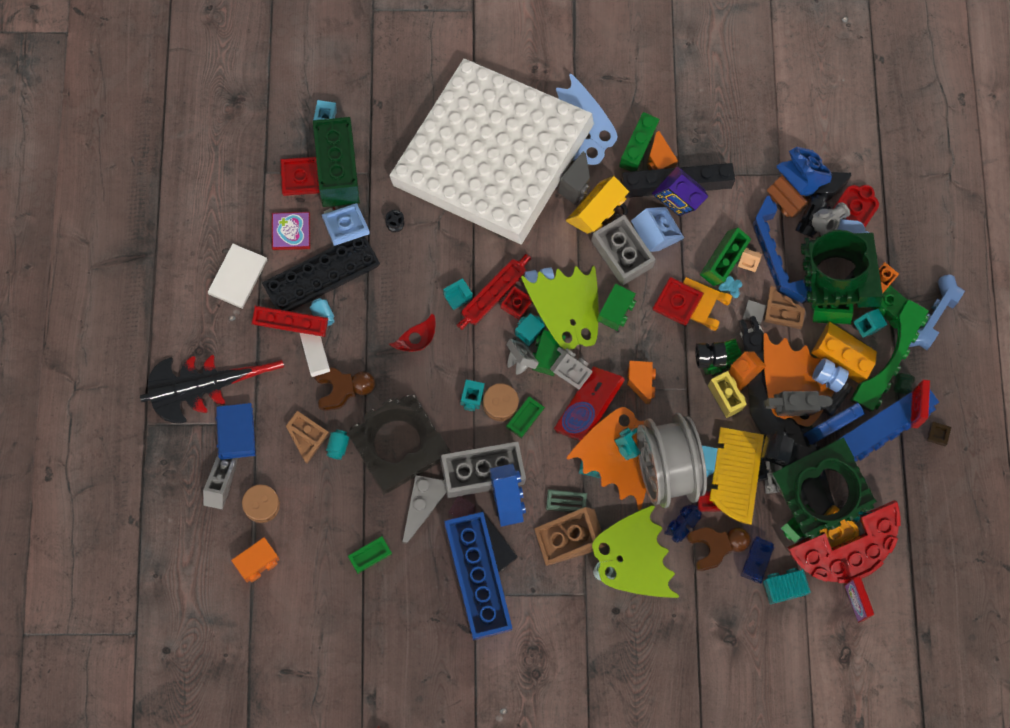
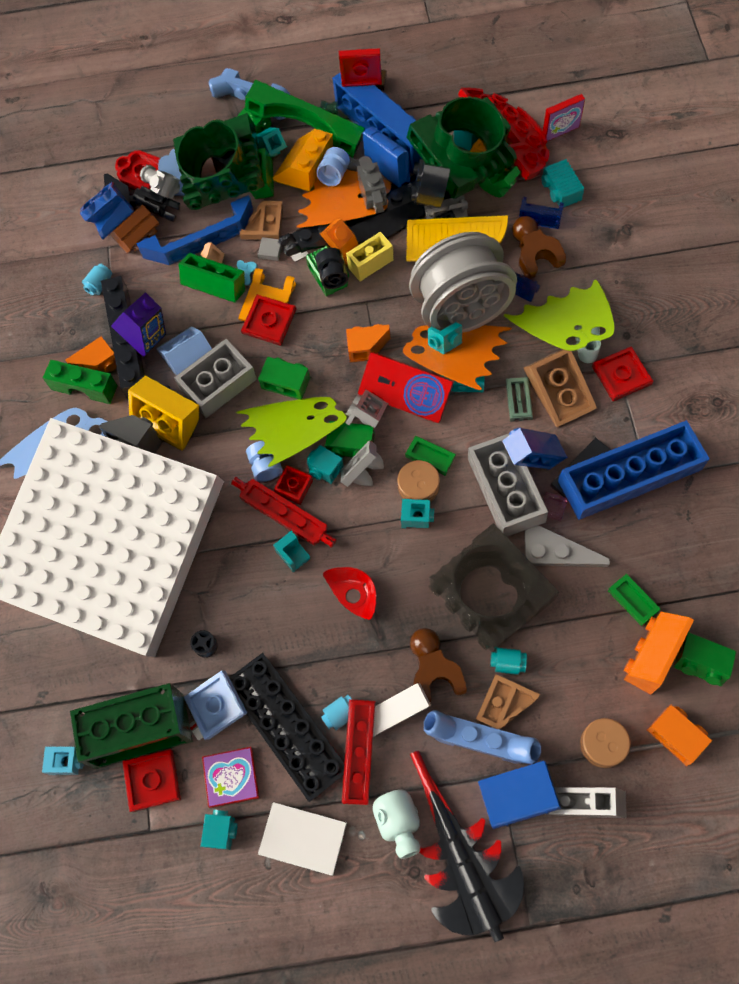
camera: 85 degrees left, 5 degrees down
(235, 341) = (398, 821): none -> light aqua piece
(253, 217) = (218, 830): none -> teal brick
(282, 411) = (482, 738): none -> medium blue plate
(308, 593) = (705, 659): none -> green brick
(321, 557) = (657, 651): none -> orange slope
(576, 596) = (622, 373): none -> red tile
(741, 161) = (92, 281): none -> medium azure brick

